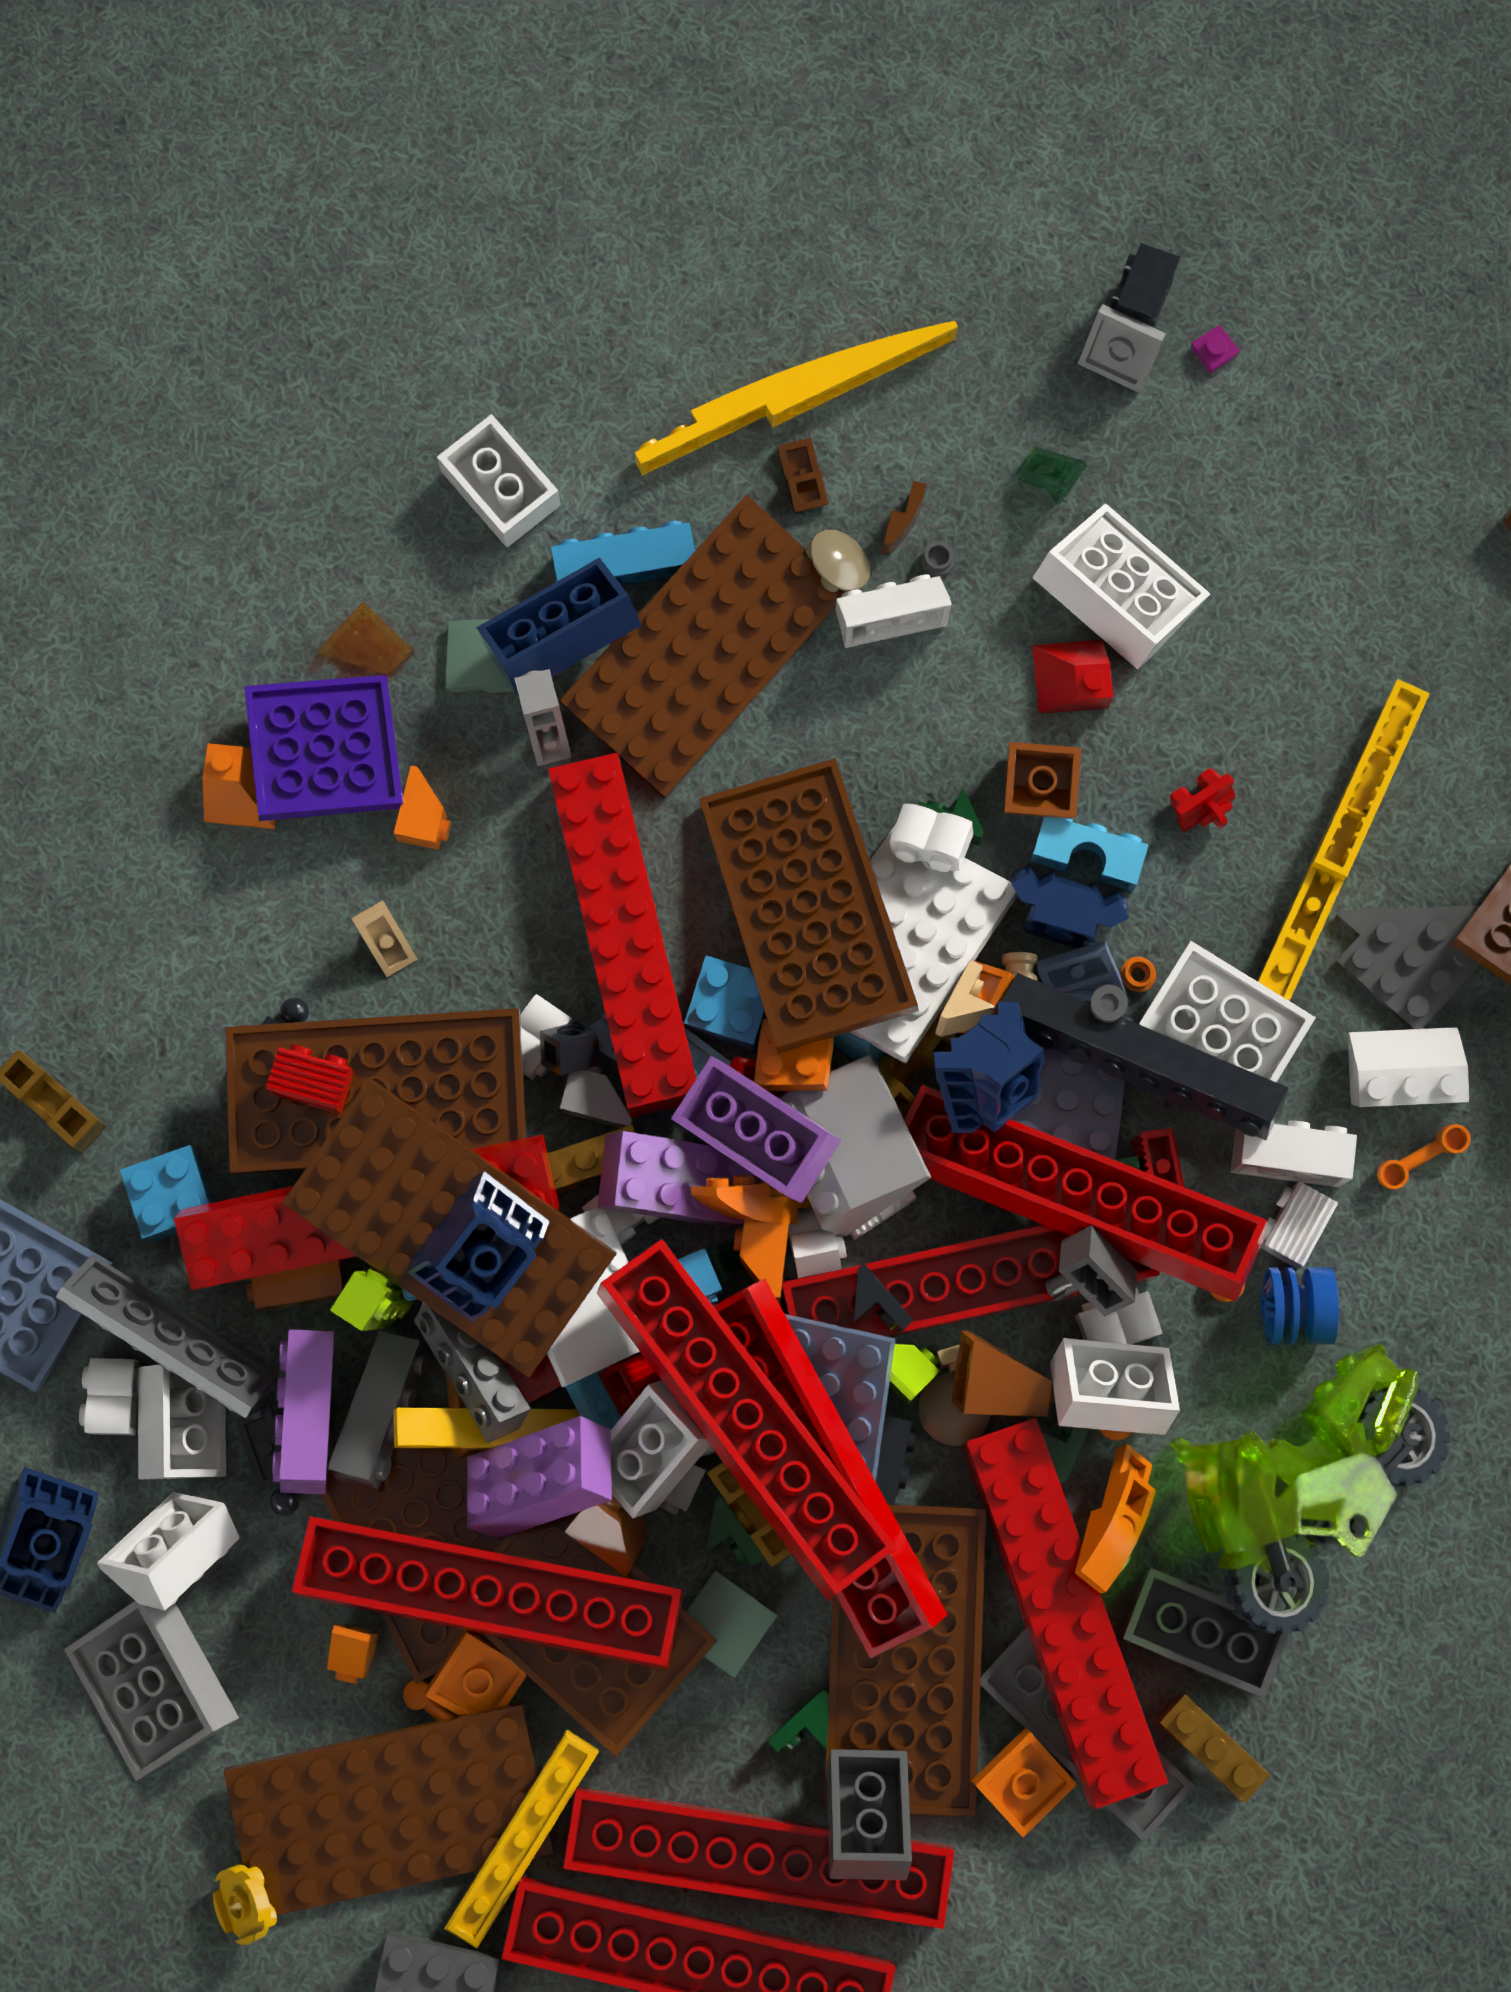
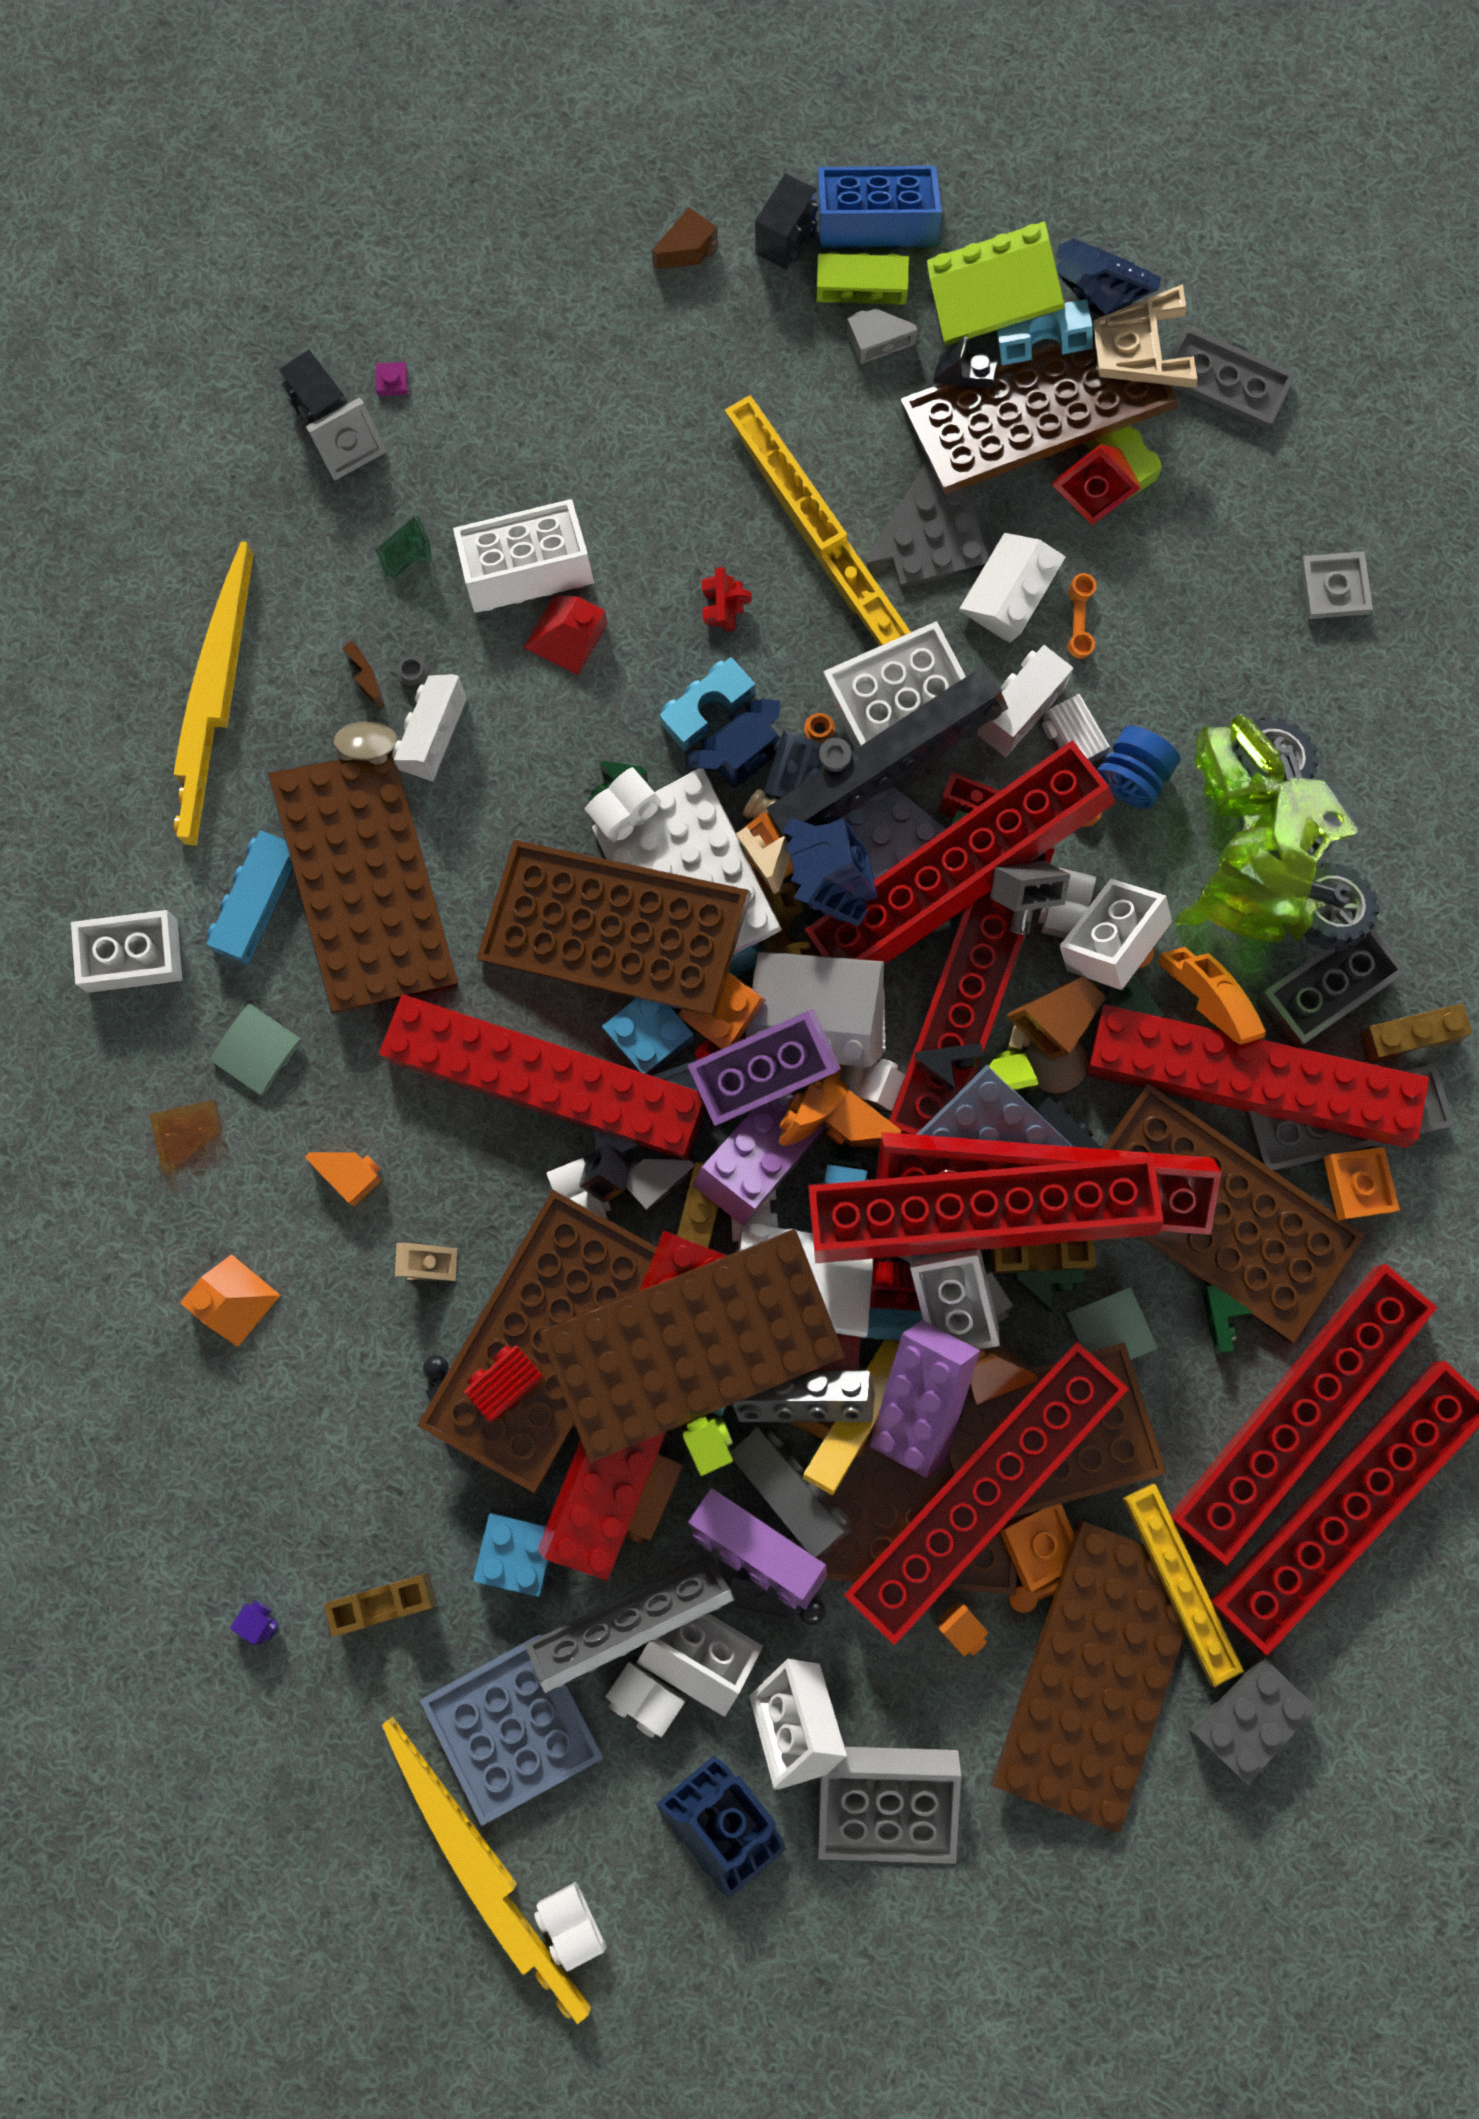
camera: 55 degrees left, 0 degrees up
(243, 1904) = (1104, 1834): yellow plate -> none
(323, 747) = (244, 1216): dark purple plate -> none
(479, 1248) = (727, 1328): dark blue slope -> none
(543, 717) = (336, 1030): light grey slope -> none
(560, 623) = (274, 974): dark blue brick -> none
(802, 475) = (280, 728): reddish brown slope -> none
(868, 1815) = (1325, 1308): dark grey brick -> none
(1041, 780) = (632, 701): dark orange slope -> none

